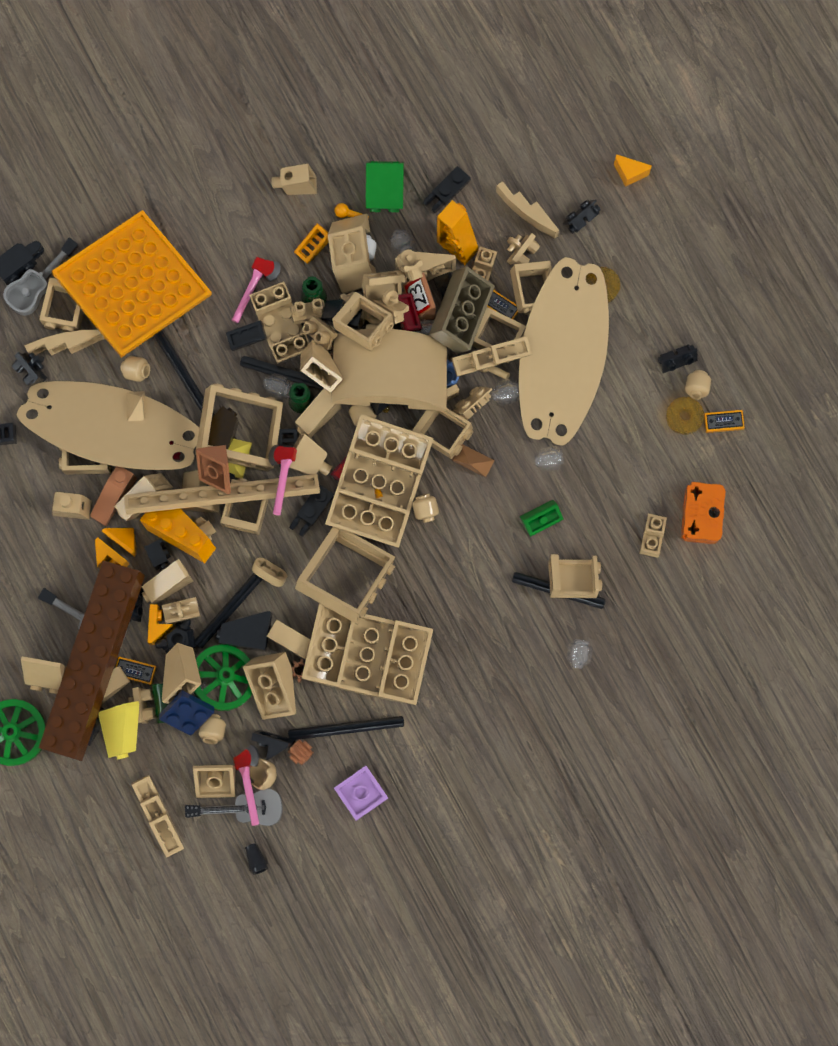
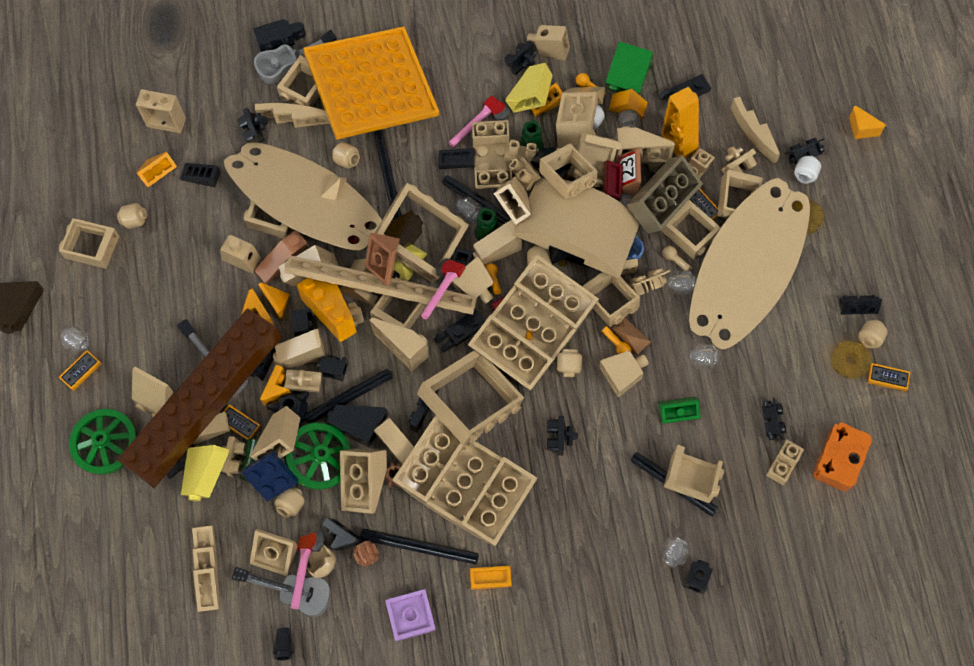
camera: 20 degrees right, 10 degrees down
(203, 587) = (333, 367): none -> black brick
(262, 542) = (402, 342): none -> tan slope
(269, 572) = (399, 373): tan beam -> none
(275, 206) = (524, 57): none -> black hips
(294, 238) = (531, 89): none -> light yellow slope
(301, 608) = (417, 418): none -> black hinge
(320, 439) = (493, 270): none -> light orange bar
(393, 220) = (628, 101): none -> light orange slope
(393, 305) = (600, 164): tan hips -> none
(411, 265) = (630, 135): tan hips -> none
(421, 733) = (490, 577): none -> light orange tile
(441, 589) = (557, 426): none -> black hips
(470, 475) = (620, 346): none -> light orange bar
(478, 498) = (623, 371): none -> tan torso
(491, 356) = (680, 244): tan slope -> none
(590, 236) = (807, 169): none -> white head
(604, 675) = (695, 583): none -> black brick
(635, 504) = (776, 427): none -> black hinge

